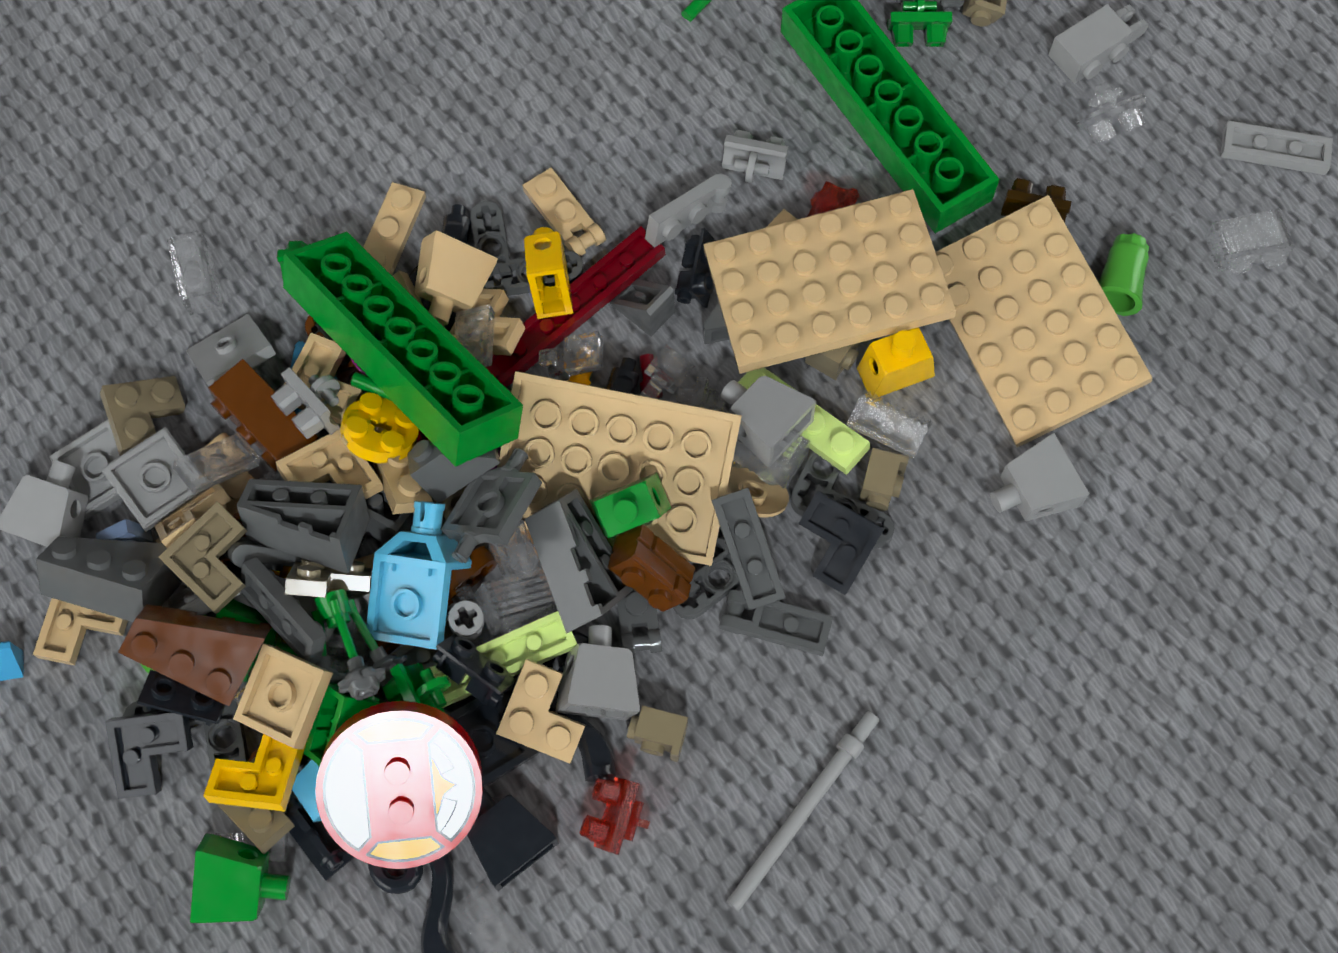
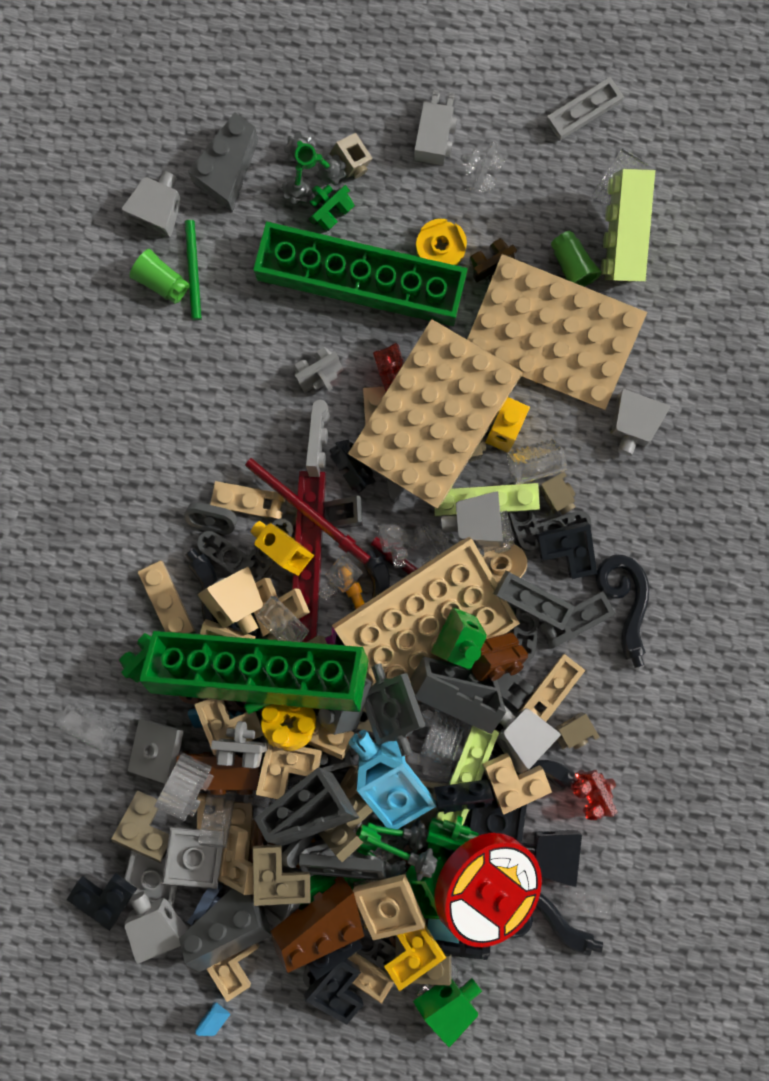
camera: 40 degrees left, 15 degrees up
(28, 447) = (102, 905): none -> black plate
(190, 773) = (372, 979): none -> tan plate
(217, 386) = (183, 787): none -> clear brick
(470, 609) = (436, 781): light grey bush -> none
(511, 194) = (210, 518): none -> dark grey plate
(615, 326) = (345, 543): none -> dark red bar
(684, 667) = (554, 687): none -> tan plate
(815, 697) = (630, 637): none -> black plant
(848, 748) = (671, 649): light grey bar -> none
(1014, 142) = (446, 232): none -> yellow plate
(1211, 275) = (628, 225): none -> yellowish green brick

